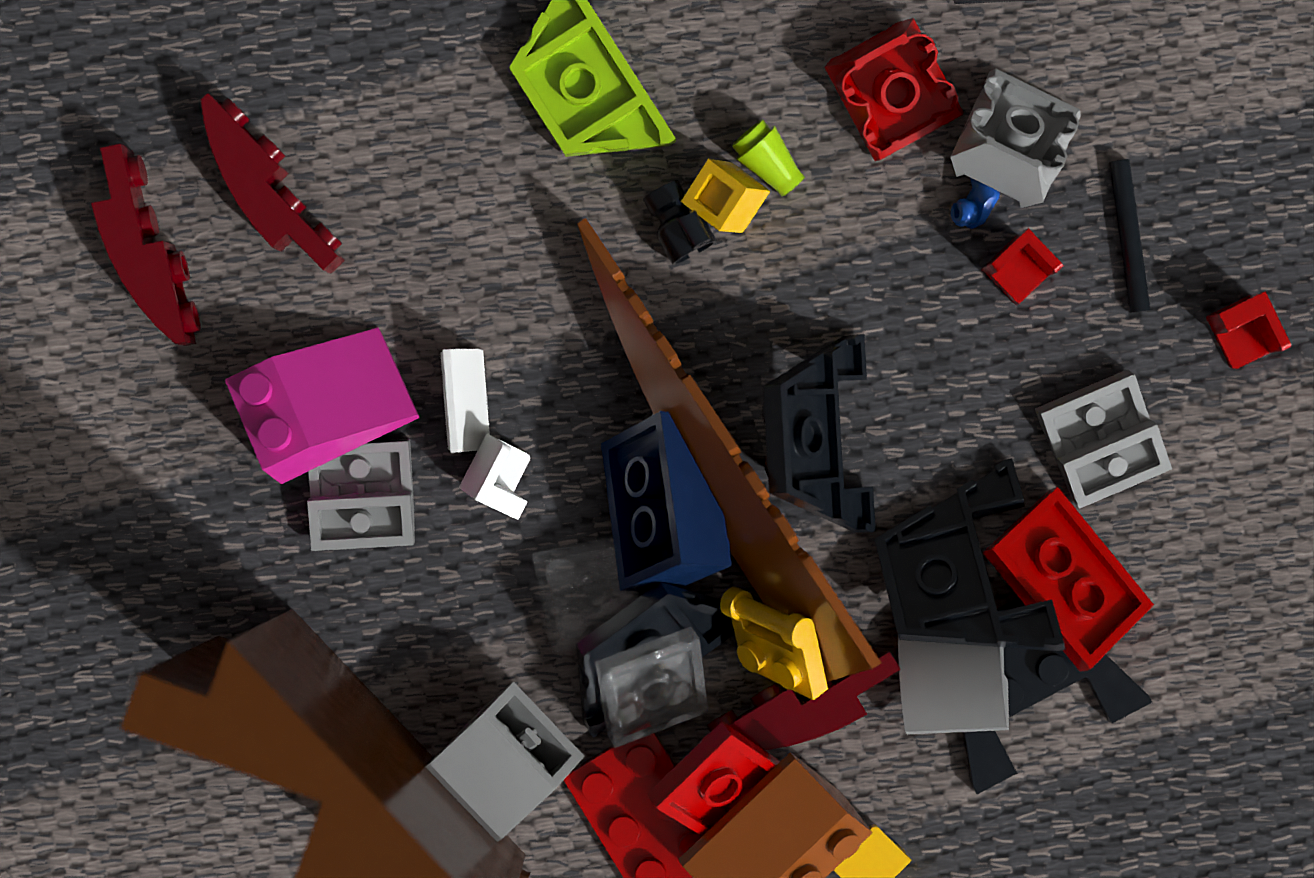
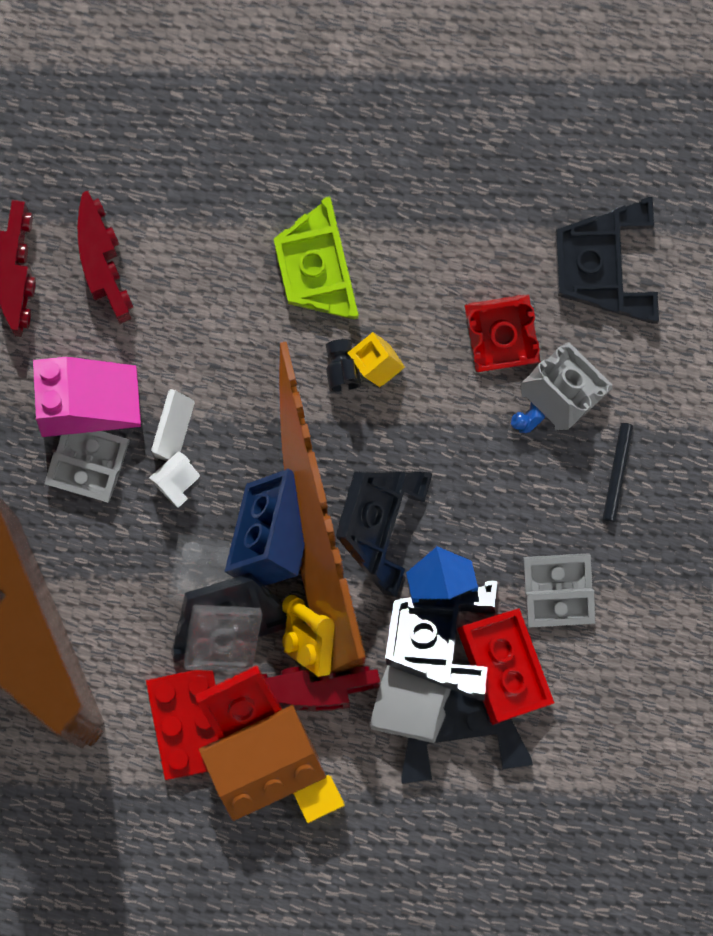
camera: 15 degrees right, 10 degrees down
(505, 761) = (115, 651): light grey slope -> none
(768, 157) = (411, 346): lime cone -> none
(933, 486) = (441, 576): none -> blue slope
(1022, 266) = (542, 465): red panel -> none
(1248, 330) = (670, 553): red panel -> none

